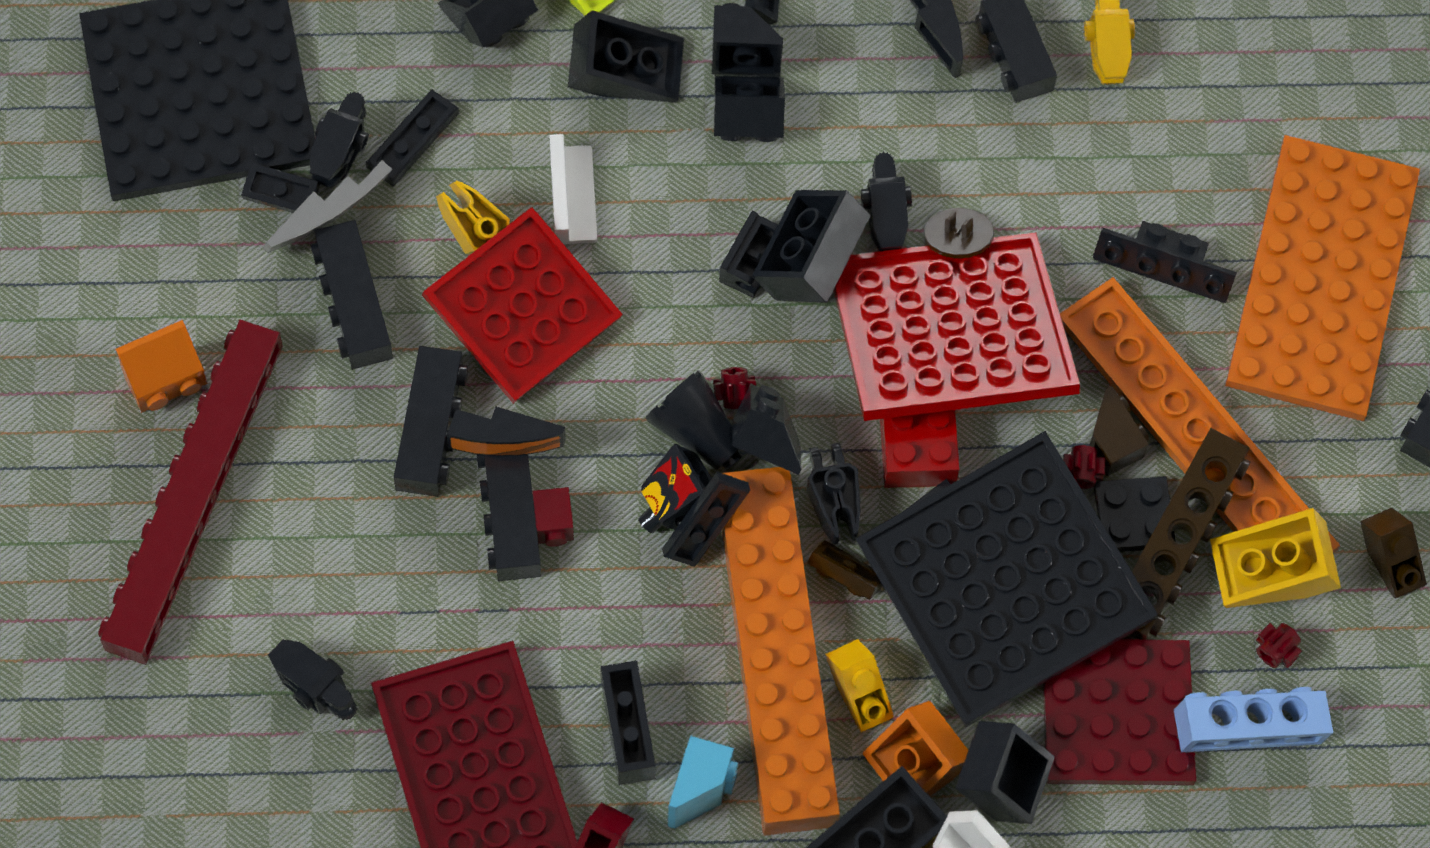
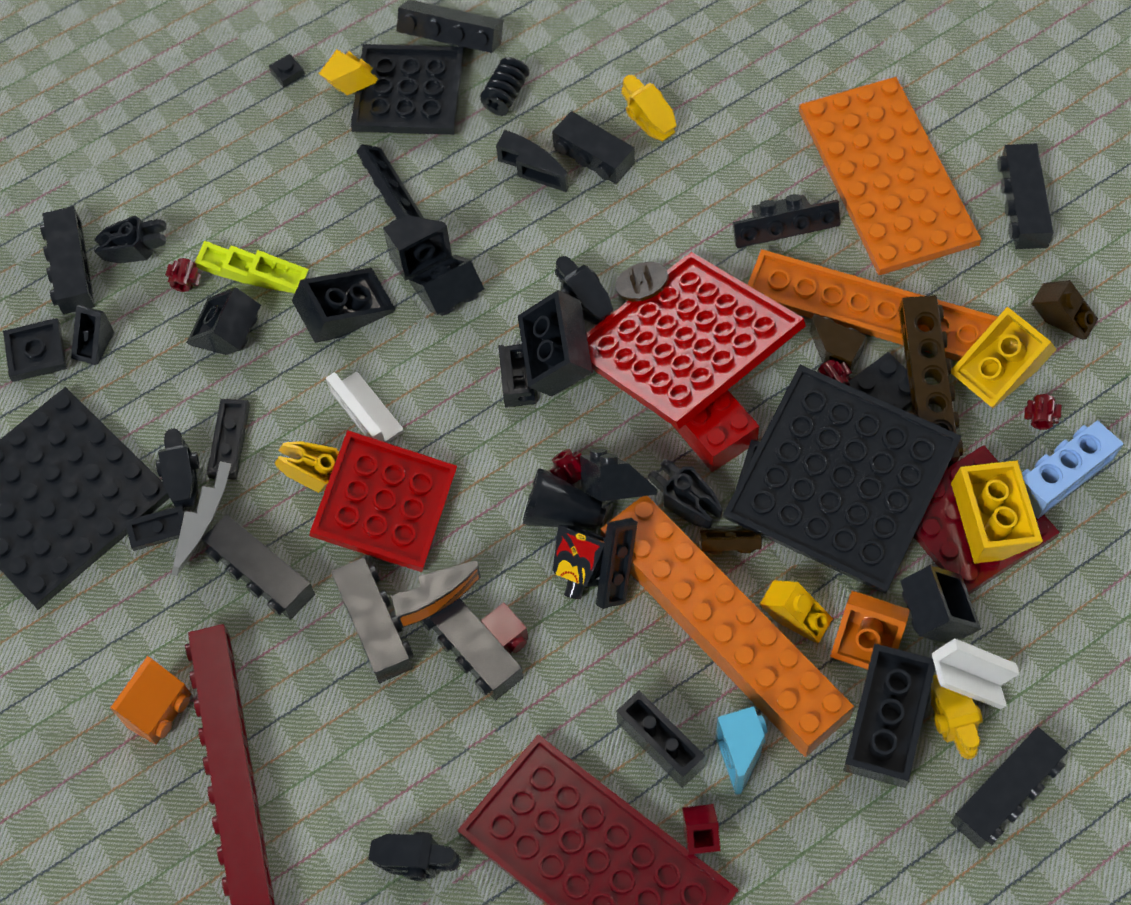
camera: 25 degrees left, 5 degrees down
(1135, 714) = (995, 510): none -> yellow slope

